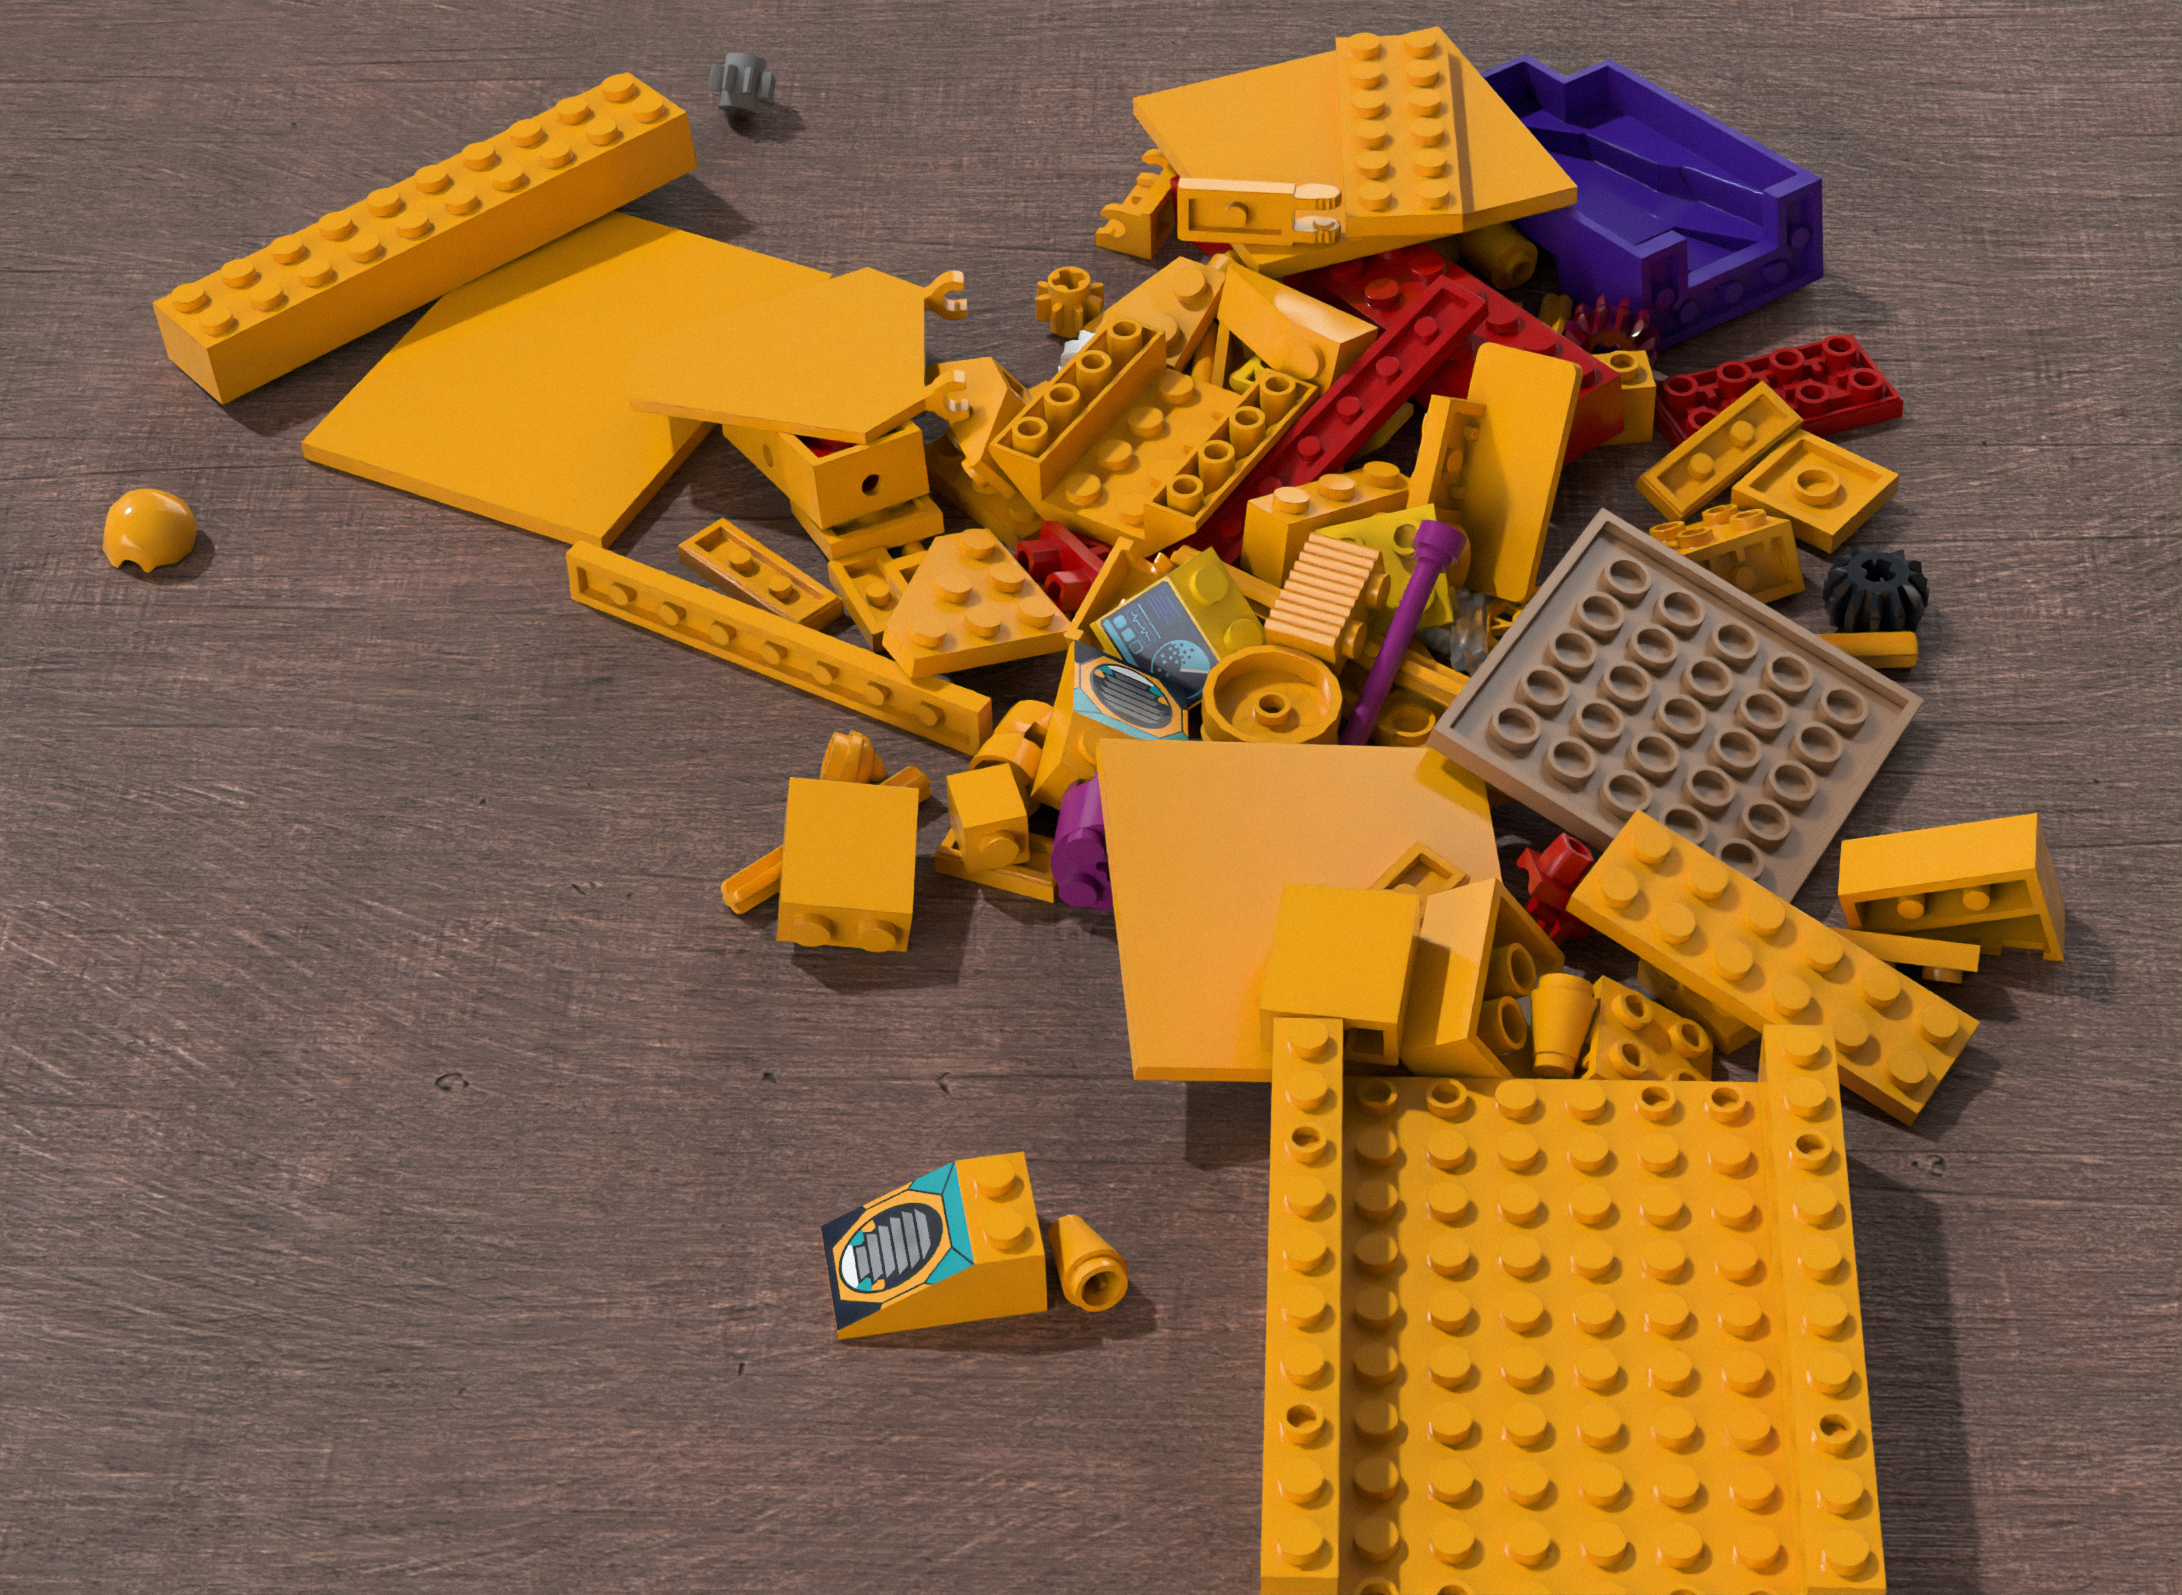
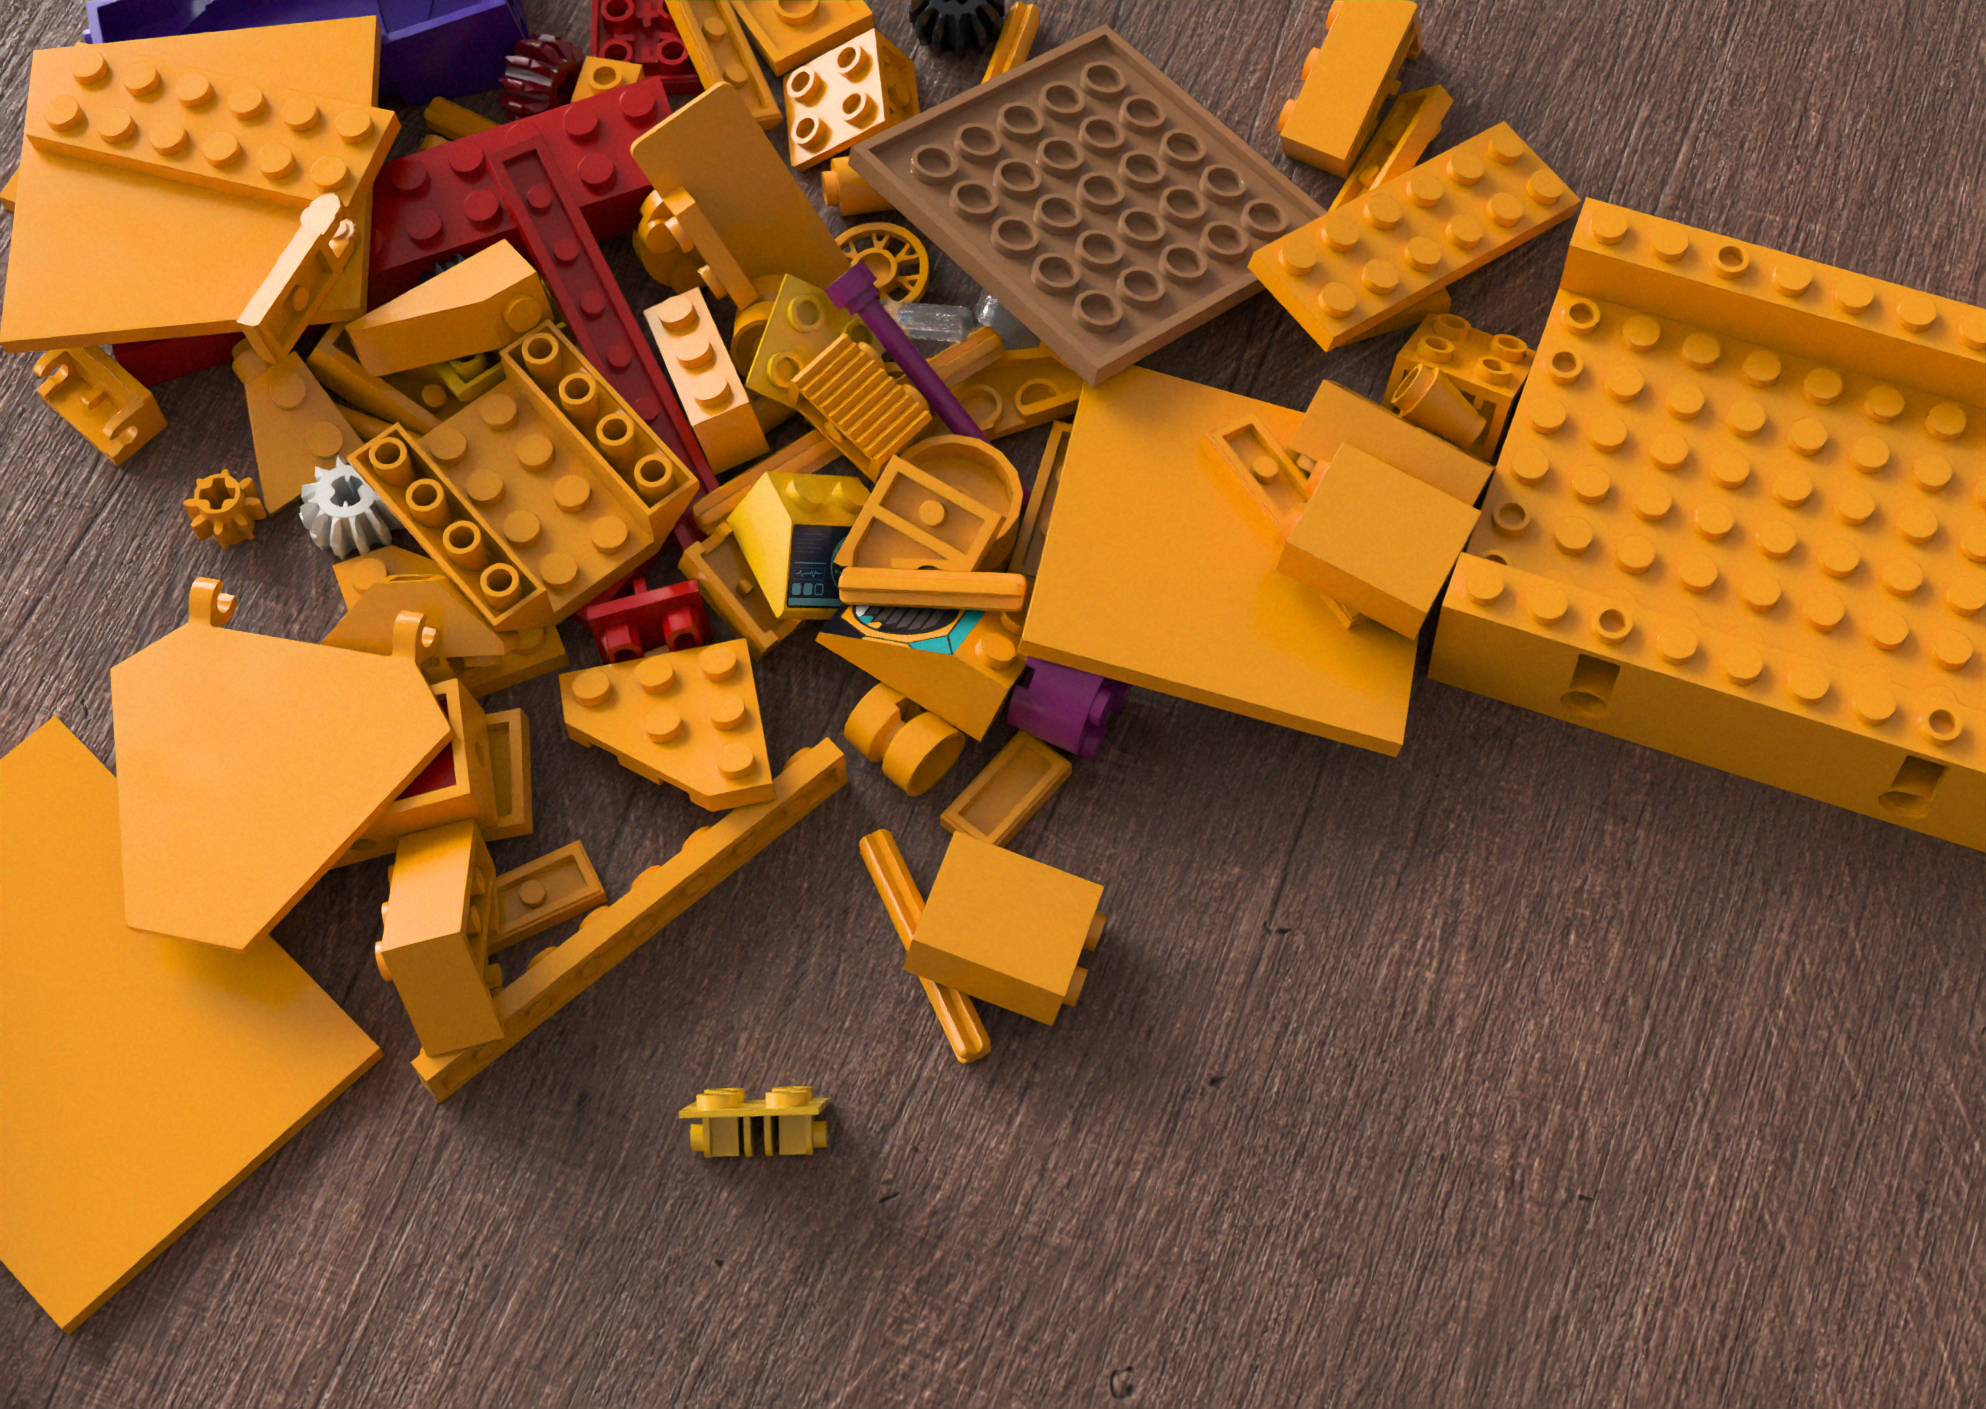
camera: 70 degrees left, 20 degrees up
(606, 765) = (723, 1107): none -> yellow hinge
(693, 507) = (438, 934): none -> light orange wedge
(852, 760) = (829, 896): light orange plate -> none
(873, 586) = (590, 803): light orange plate -> none
(939, 1251) = (1519, 988): light orange slope -> none
(988, 818) = (994, 786): light orange brick -> none
(1087, 1265) = (1565, 868): light orange cone -> none
(1150, 691) = (933, 589): none -> light orange axle
(1212, 665) = (919, 525): none -> light orange wing
(1552, 882) = (1264, 349): red hips -> none

